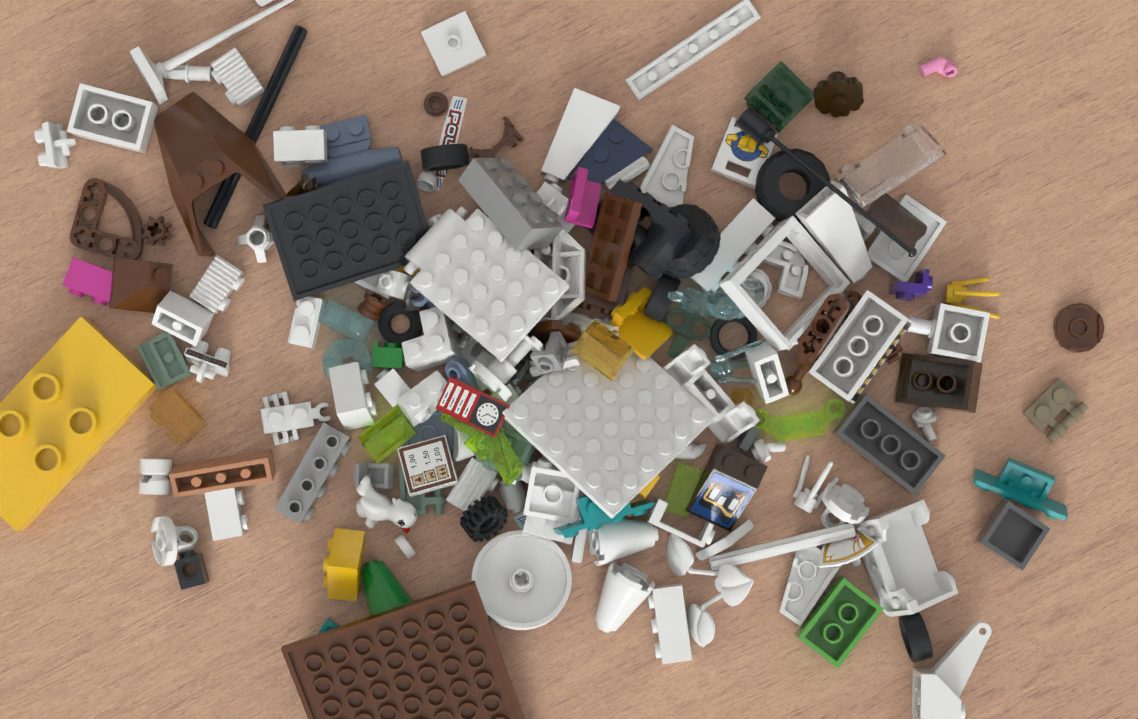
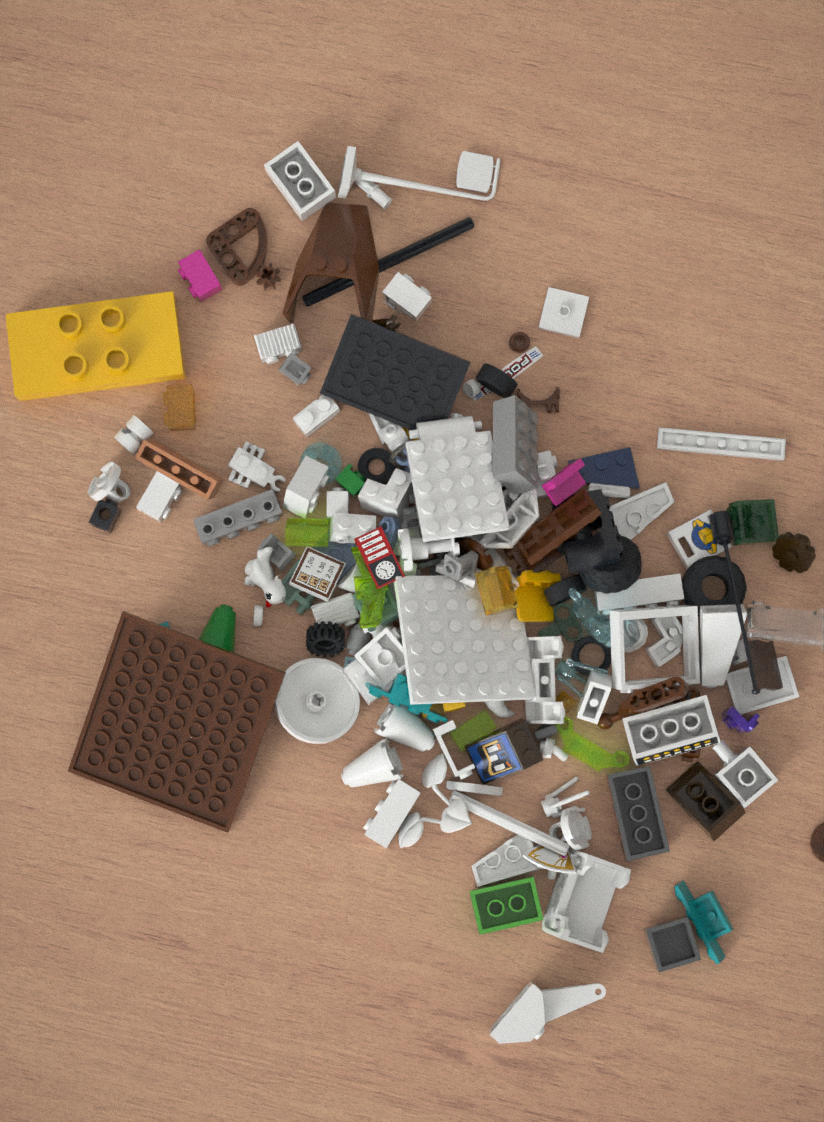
camera: 45 degrees right, 5 degrees down
(56, 145) = (249, 169): white hips -> none
(139, 284) = (227, 302): reddish brown slope -> none
(164, 360) = (202, 364): sand green plate -> none
(182, 318) = (237, 346): white brick -> none
(206, 365) = (227, 390): white hips -> none
(237, 78) = (403, 220): white brick -> none
(253, 296) = (295, 369): none -> light grey bracket
(258, 238) = (330, 335): white rock -> none
(344, 564) = (208, 594): yellow brick -> none
(347, 321) = (343, 436): clear light blue brick -> none
(350, 152) = (437, 327): sand blue plate -> none
(372, 305) = (368, 439): reddish brown wheel -> none
(578, 131) = (601, 435): white slope -> none
(579, 545) = (375, 709): white tile -> none
(915, 637) = (549, 958): black tyre -> none
(923, 418) = (675, 816): white plate -> none
(956, 294) = (767, 750): yellow plant -> none
(1050, 404) = (770, 878): dark tan plate -> none

